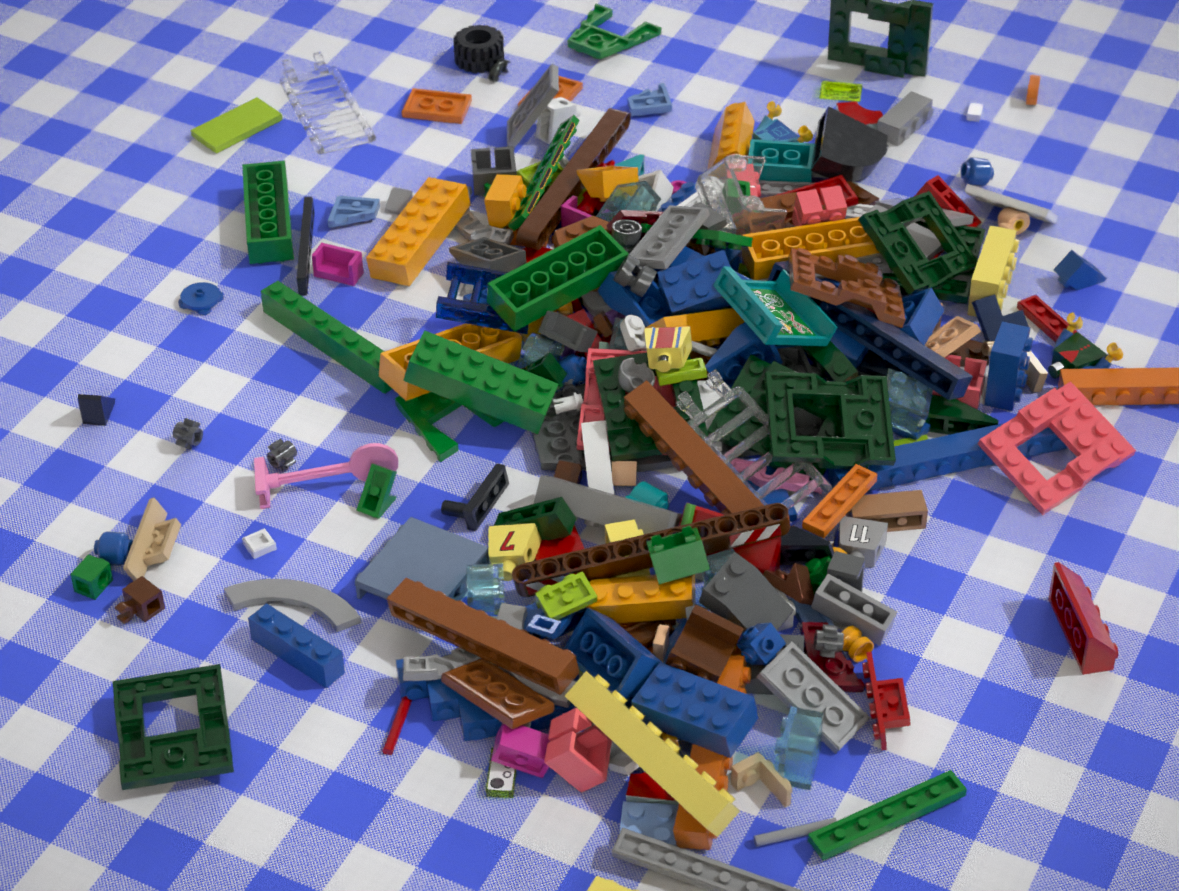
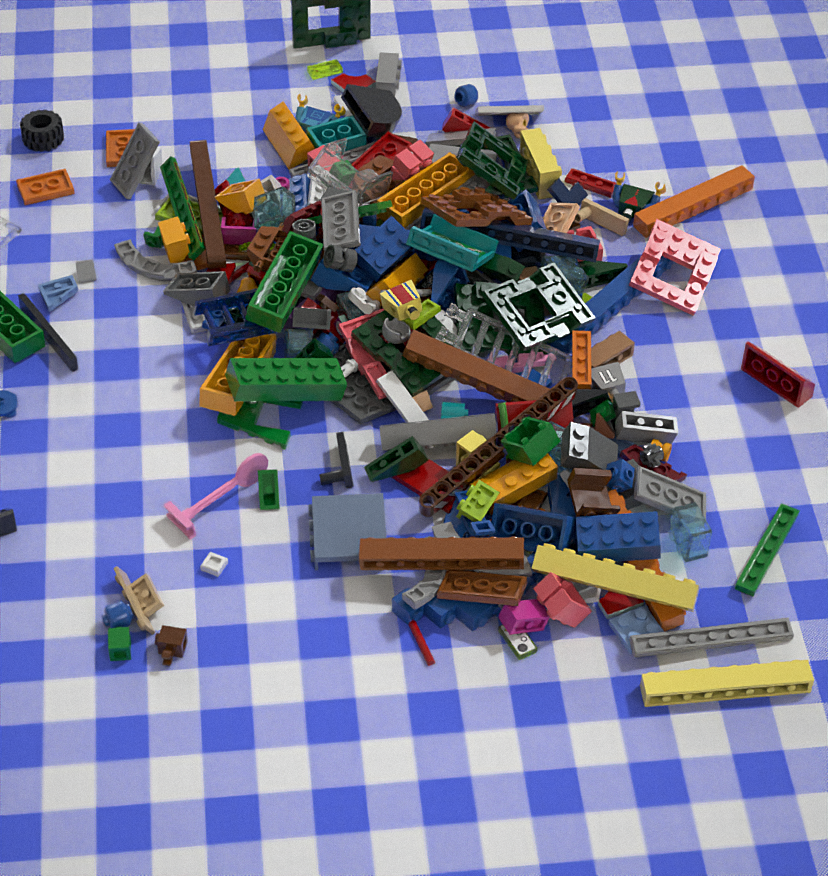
camera: 35 degrees left, 5 degrees up
(176, 754) = (295, 740): dark green piece -> none
(187, 433) = (92, 509): dark grey gear -> none
(281, 454) = (176, 493): dark grey gear -> none
(296, 645) = (311, 621): blue brick -> none
(297, 593) = (276, 586): light grey tile -> none
(324, 333) = (129, 392): green brick -> none
(337, 264) = (86, 336): dark pink panel -> none
(418, 231) = (127, 288): light orange brick -> none
(482, 169) = (144, 219): dark grey piece -> none
(485, 587) = (407, 521): clear light blue brick -> none
(496, 69) = (68, 141): pearl dark grey arm -> none
(513, 545) = (396, 487): light yellow torso -> none
(568, 471) = (382, 417): reddish brown slope -> none
(602, 43) = (124, 93): green wing -> none
(650, 102) = (202, 125): medium blue wing -> none
(661, 642) = (555, 503): light nougat tile -> none
(757, 767) = (676, 557): tan bracket -> none
(790, 833) = (722, 587): light grey bar -> none
(888, 703) = (709, 477): red bracket -> none
(974, 112) = (425, 52): white piece -> none
(1008, 366) = (608, 222): blue brick -> none
(1033, 89) = (452, 22): orange beam -> none
(1078, 272) = (586, 142): blue slope -> none

